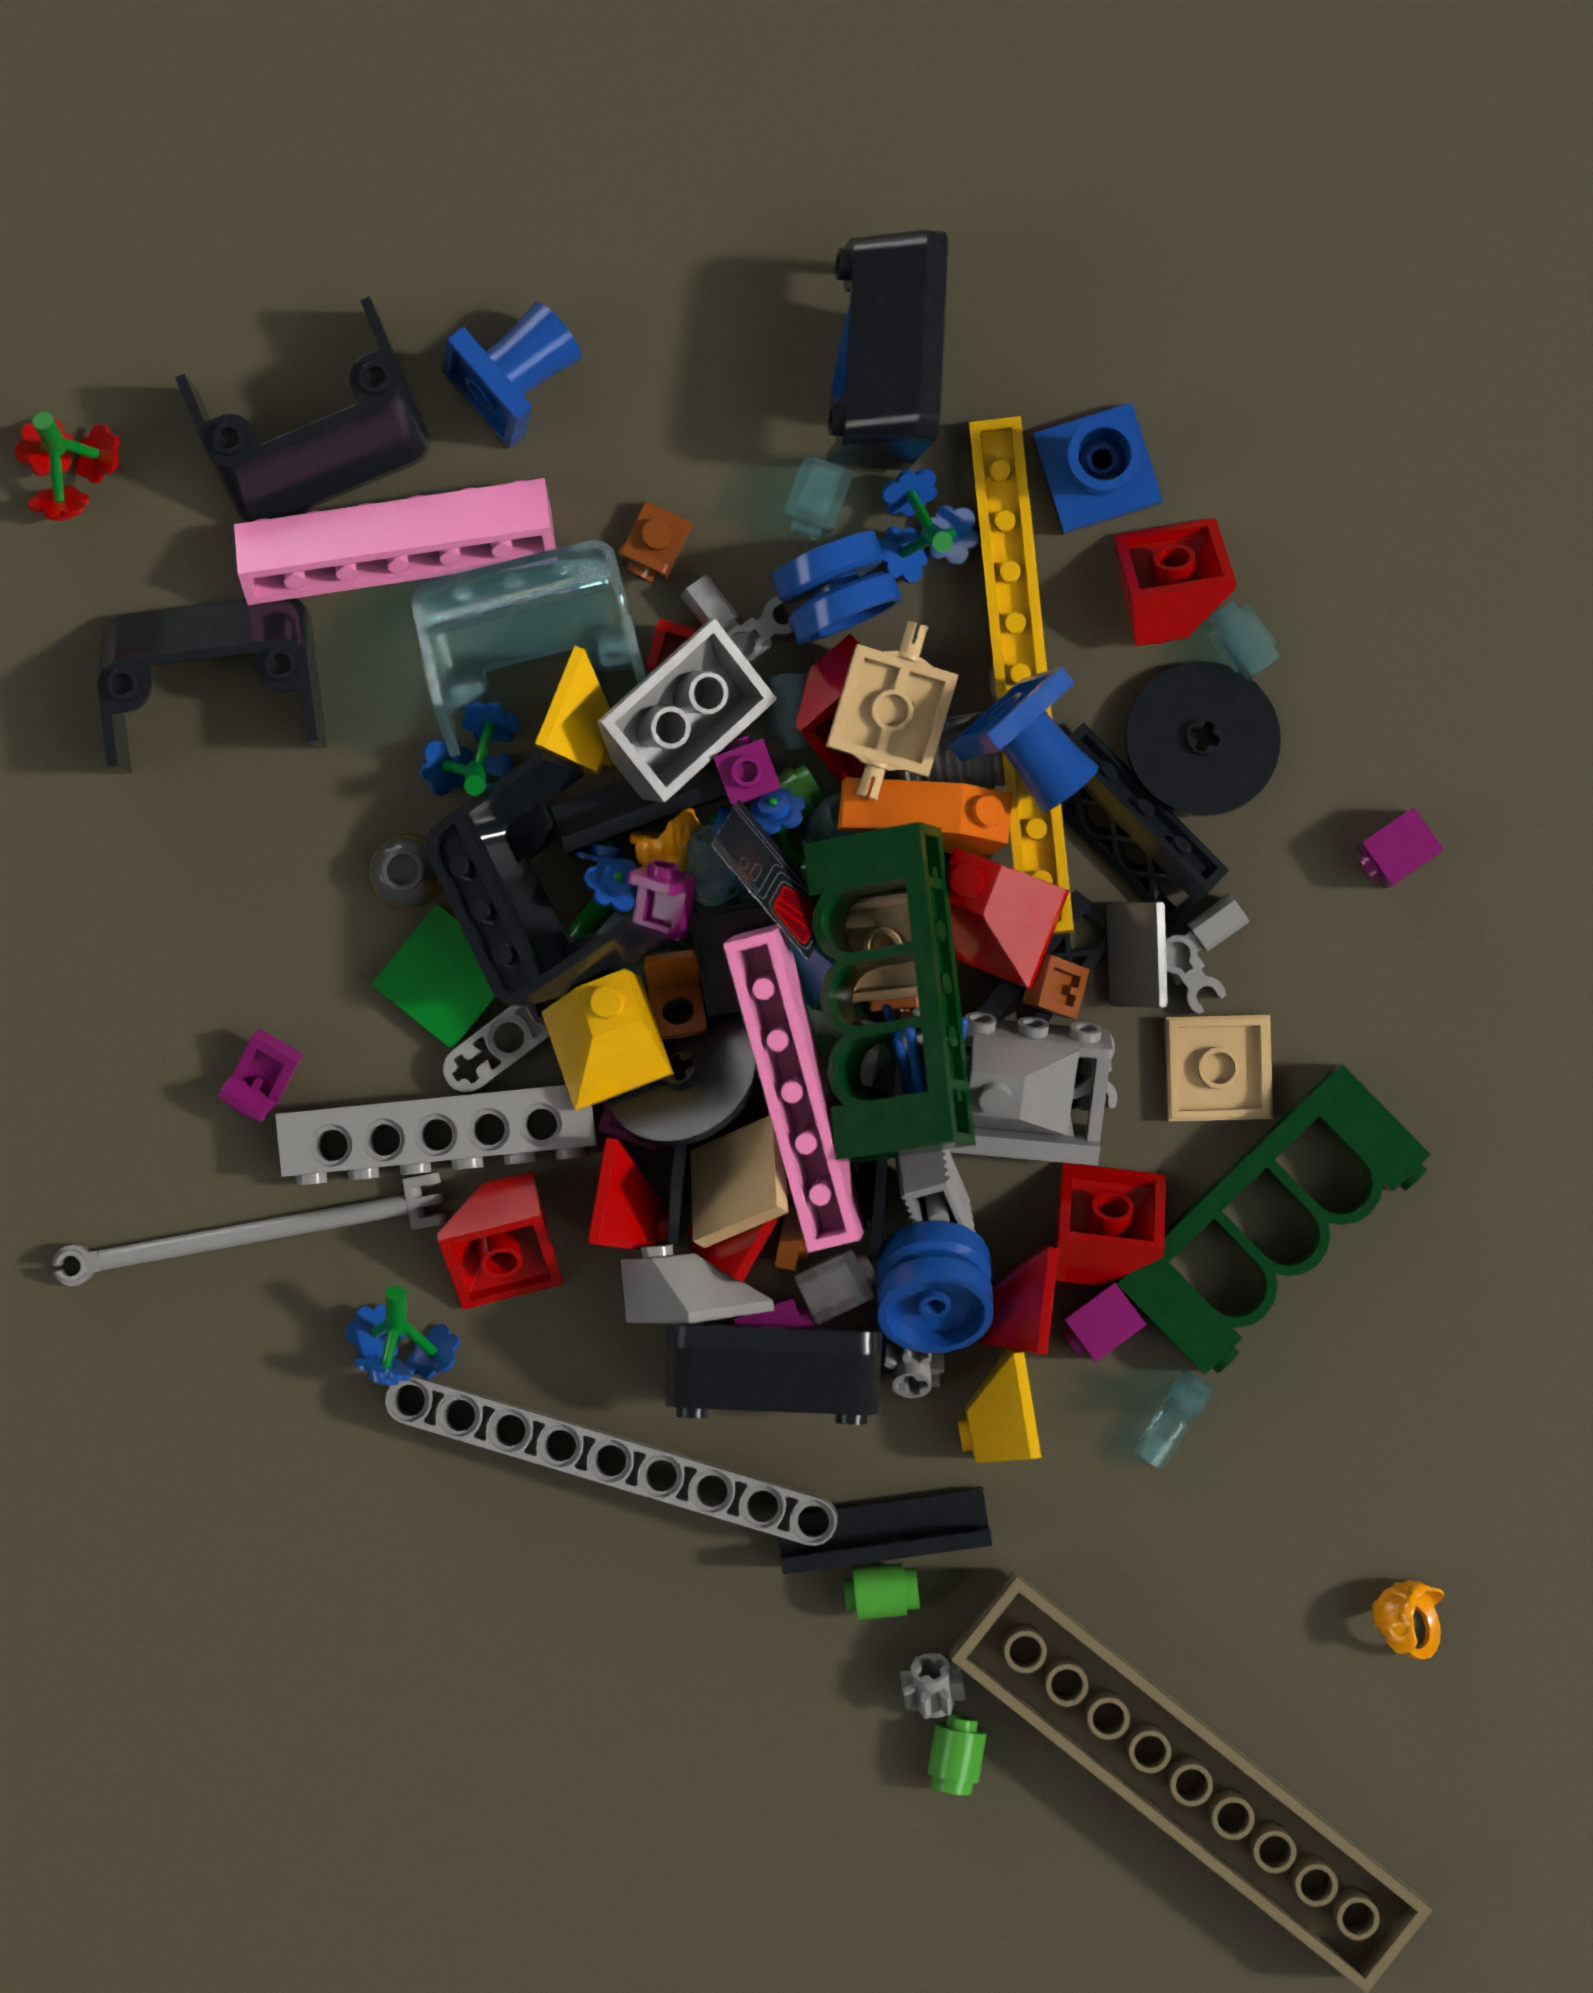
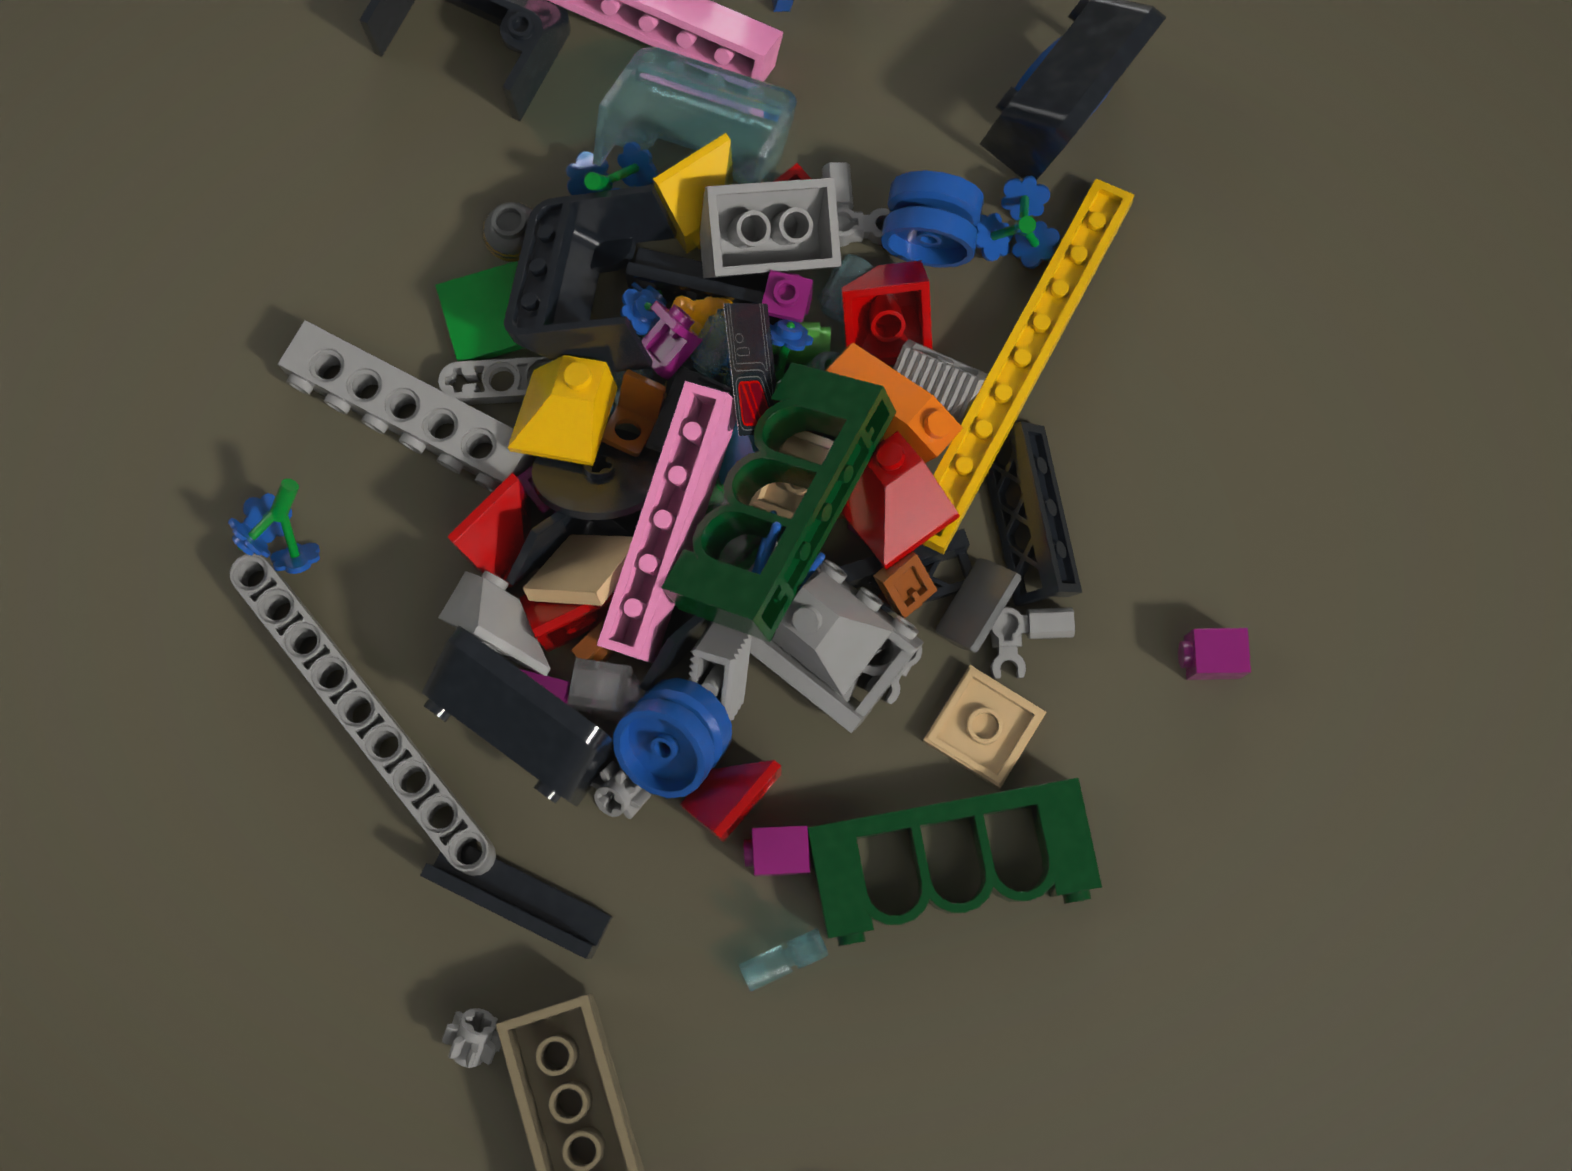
camera: 35 degrees right, 10 degrees down
(261, 1076) = (317, 295): magenta bracket -> none
(410, 1204) = (355, 448): light grey hinge -> none
(500, 1243) = (394, 511): red slope -> none
(654, 543) = (828, 126): dark orange bracket -> none
(817, 497) = (963, 155): clear light blue brick -> none
(882, 1591) = (485, 941): bright green brick -> none
(892, 710) = (915, 313): tan plate -> none
(956, 1755) = (454, 1103): bright green brick -> none
(1001, 1414) = (661, 866): yellow slope -> none
(1031, 739) = (1001, 390): blue plant -> none
(1089, 494) = (1166, 262): blue plant -> none
(1107, 1223) = (828, 781): red slope -> none
(1166, 755) = (1132, 520): black piece -> none
(1172, 578) = (1169, 368): red slope -> none
(1243, 639) = (1194, 439): clear light blue brick -> none

